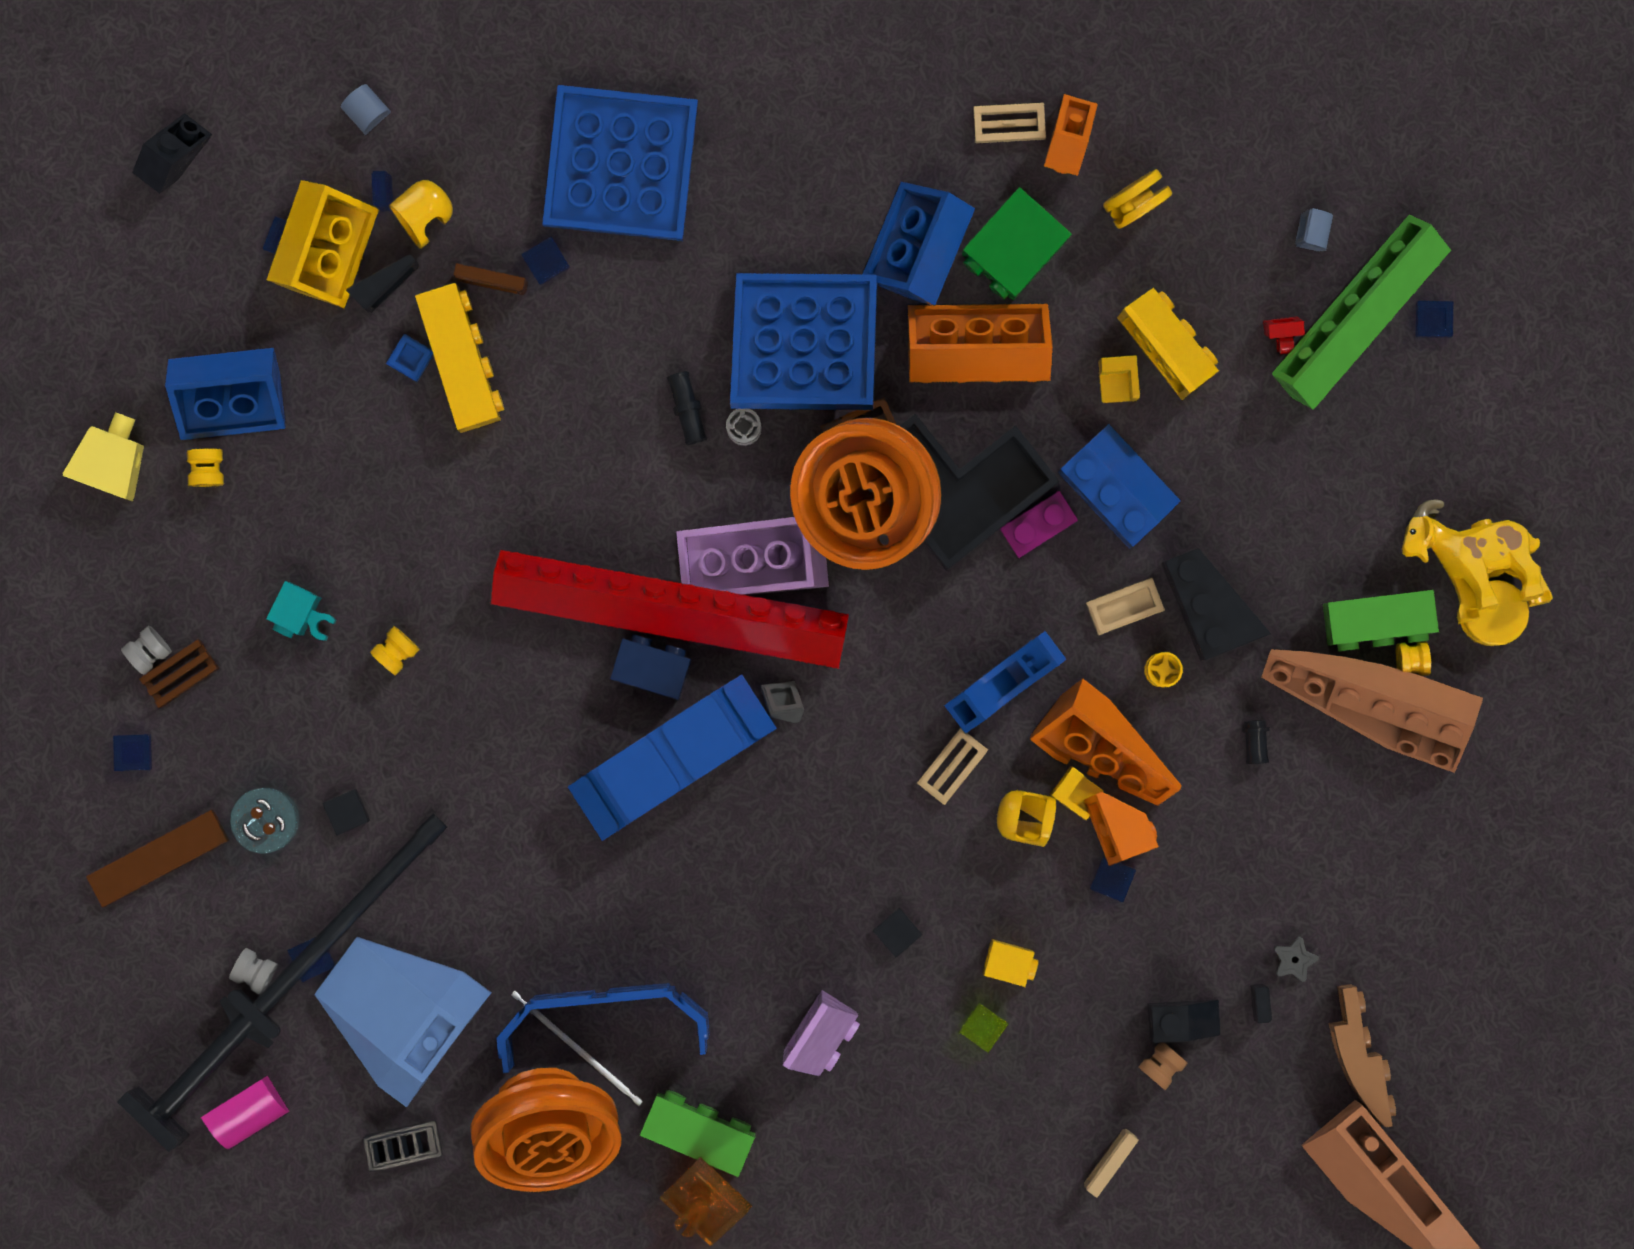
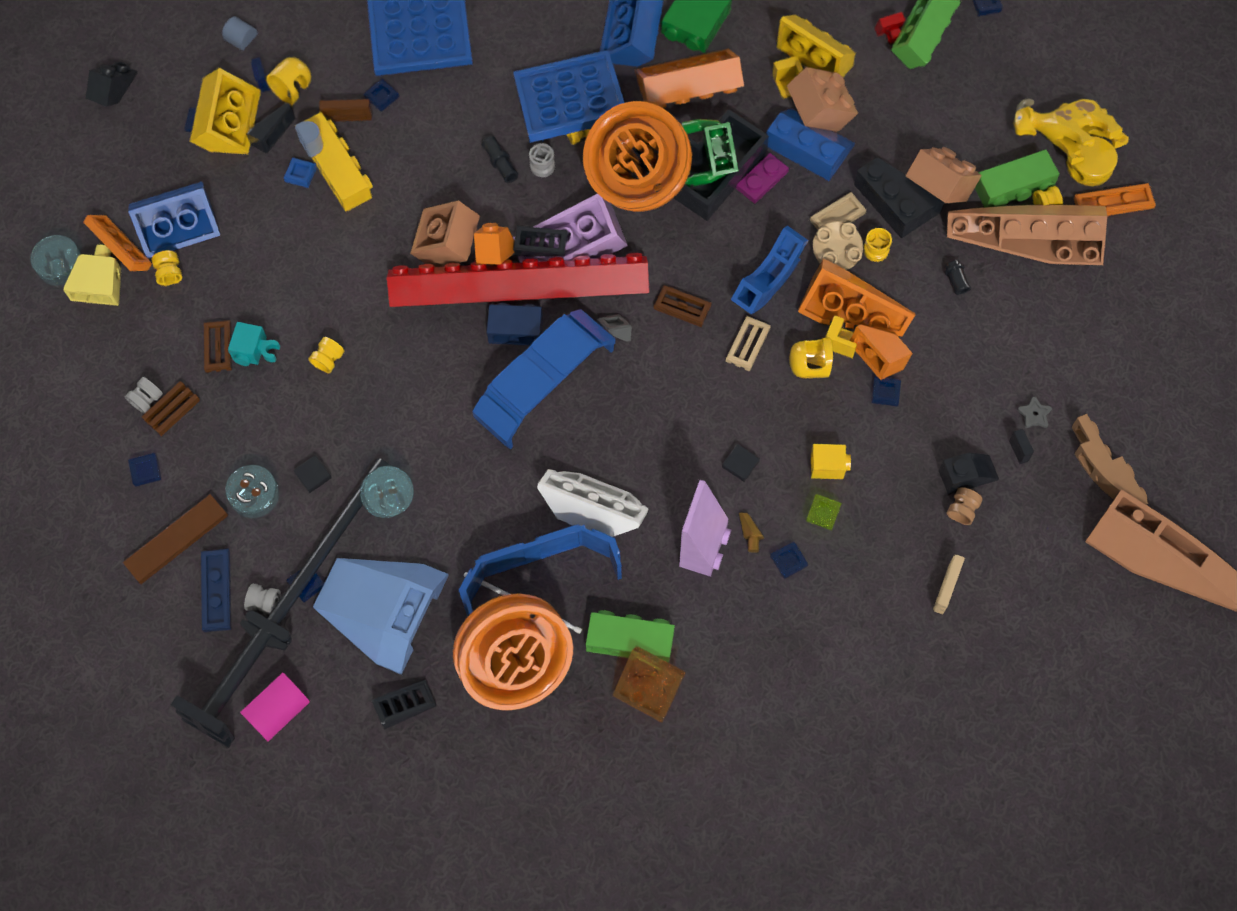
camera: 10 degrees left, 20 degrees down
(58, 417) = (54, 259): none -> clear light blue head
(144, 412) = (117, 242): none -> orange tile
(197, 939) = (216, 590): none -> dark blue tile
(268, 597) = (218, 366): none -> reddish brown tile
(430, 330) = (310, 137): none -> sand blue brick
(435, 868) = (386, 492): none -> clear light blue head
(585, 520) = (445, 234): none -> nougat brick
(645, 559) = (493, 244): none -> orange slope
(685, 548) = (524, 232): none -> black slope
(694, 947) = (591, 503): none -> white wedge
(856, 672) = (699, 321): none -> reddish brown tile
(885, 1028) = (750, 532): none -> pearl gold bar
(923, 1077) = (789, 560): none -> clear blue tile
(982, 491) = (718, 148): none -> green torso
(1110, 655) = (838, 243): none -> tan dish
(1150, 436) = (822, 99): none -> nougat brick
(1279, 599) = (944, 174): none -> nougat brick
(1505, 678) = (1119, 199): none -> orange tile

